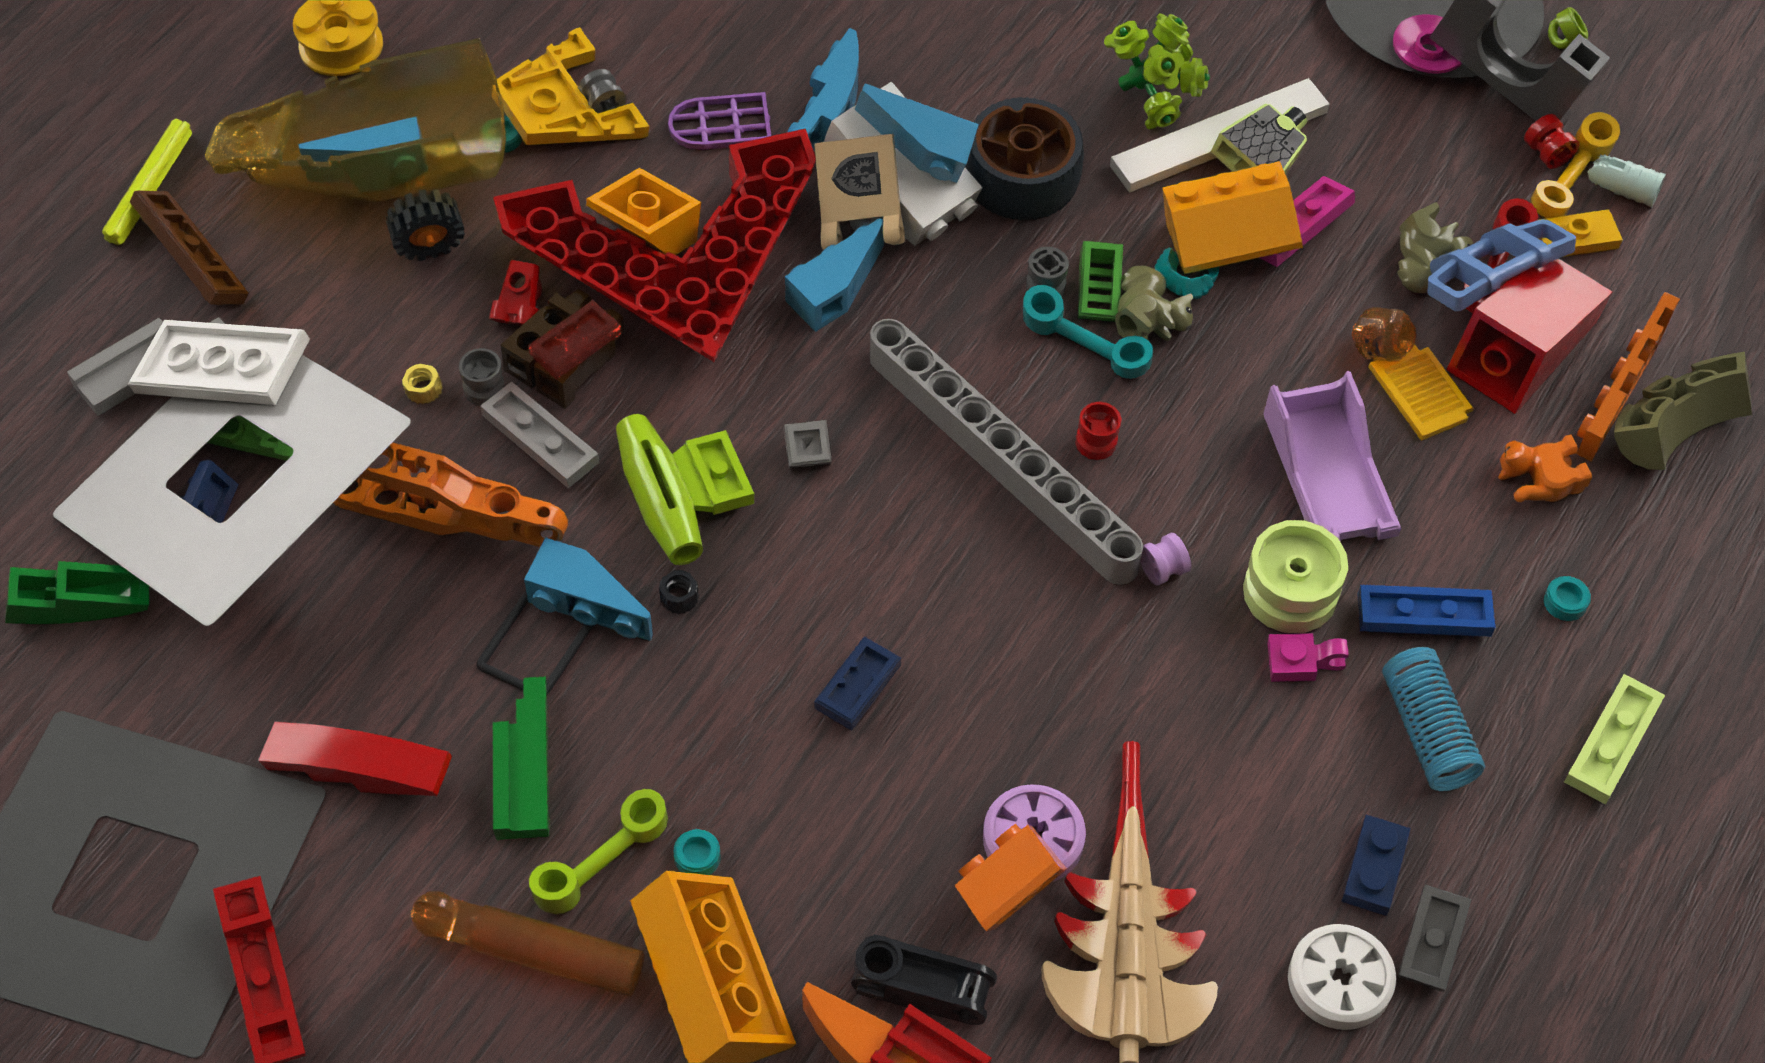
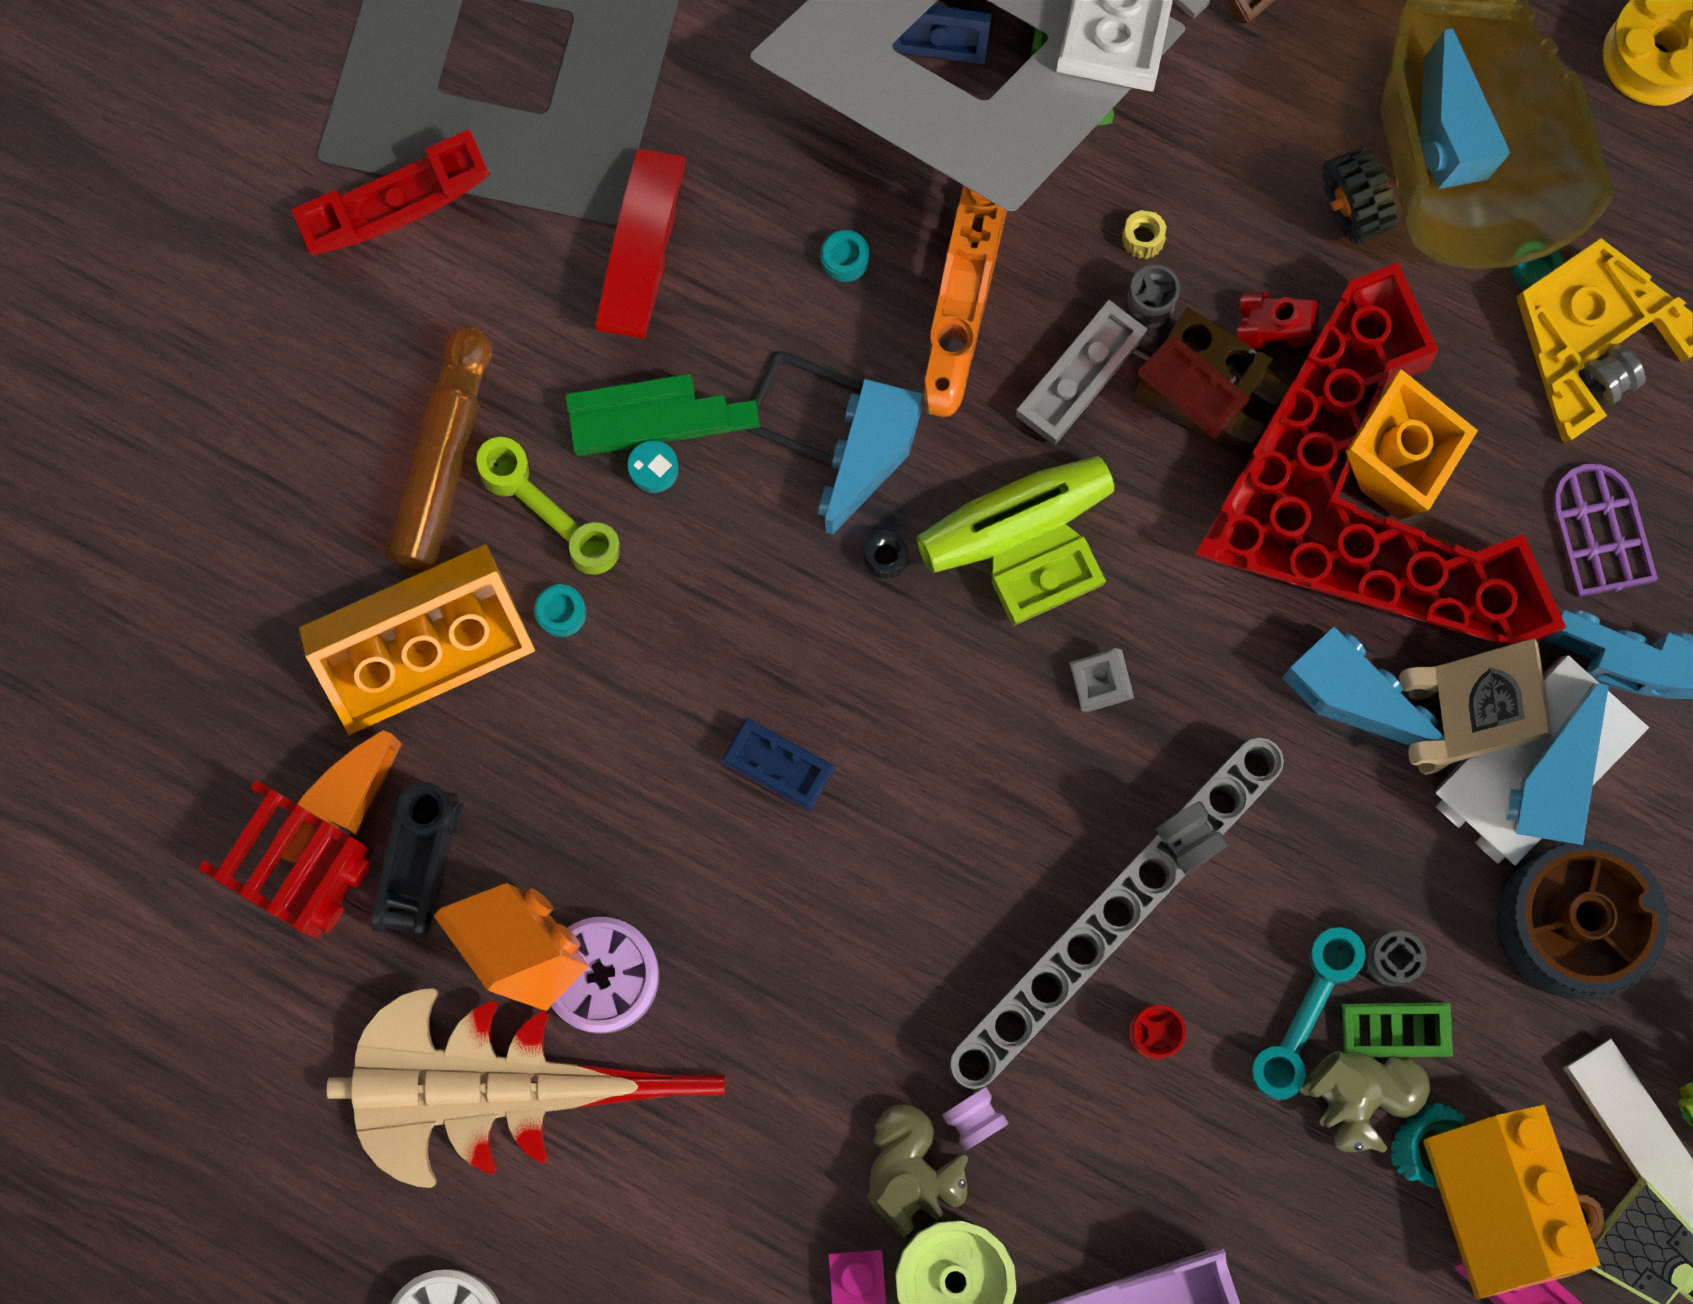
camera: 90 degrees right, 20 degrees up
(396, 604) = (845, 255): none -> teal tile
(571, 768) = (653, 466): none -> teal tile
(951, 373) = (1192, 837): none -> dark grey wheel
(1212, 613) = (902, 1179): none -> olive animal

